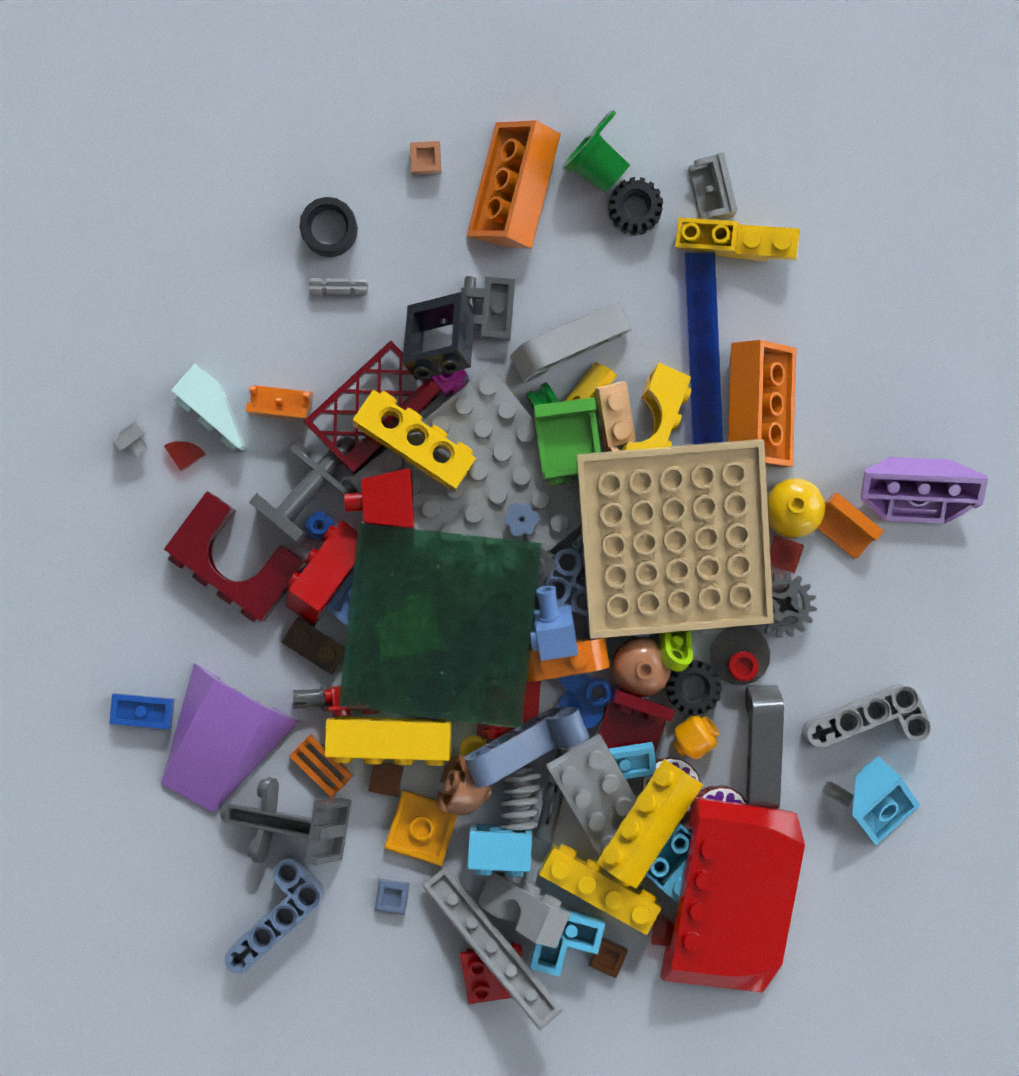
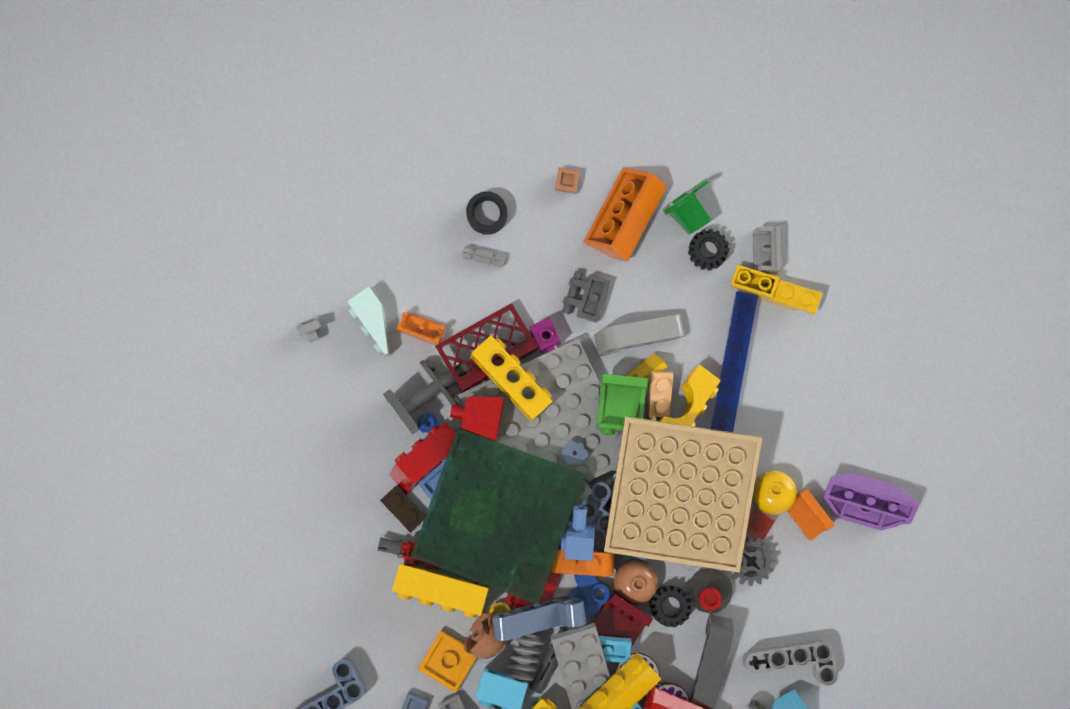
camera: 10 degrees right, 5 degrees down
(141, 711) = (267, 526): blue plate -> none
(184, 453) = (345, 348): clear red tile -> none
(194, 549) = (334, 418): dark red arch -> none
(219, 739) = (318, 560): medium lavender wedge -> none
(312, 773) = (369, 585): orange tile -> none
(324, 831) = (377, 645): dark grey piece -> none
(386, 779) = (431, 618): reddish brown tile -> none
(434, 314) = (546, 292): black window -> none
(541, 396) = (610, 368): green wheel -> none
(676, 649) = (664, 574): lime plate -> none
(696, 737) = (664, 642): light orange head -> none
(763, 397) = (769, 408): orange slope -> none

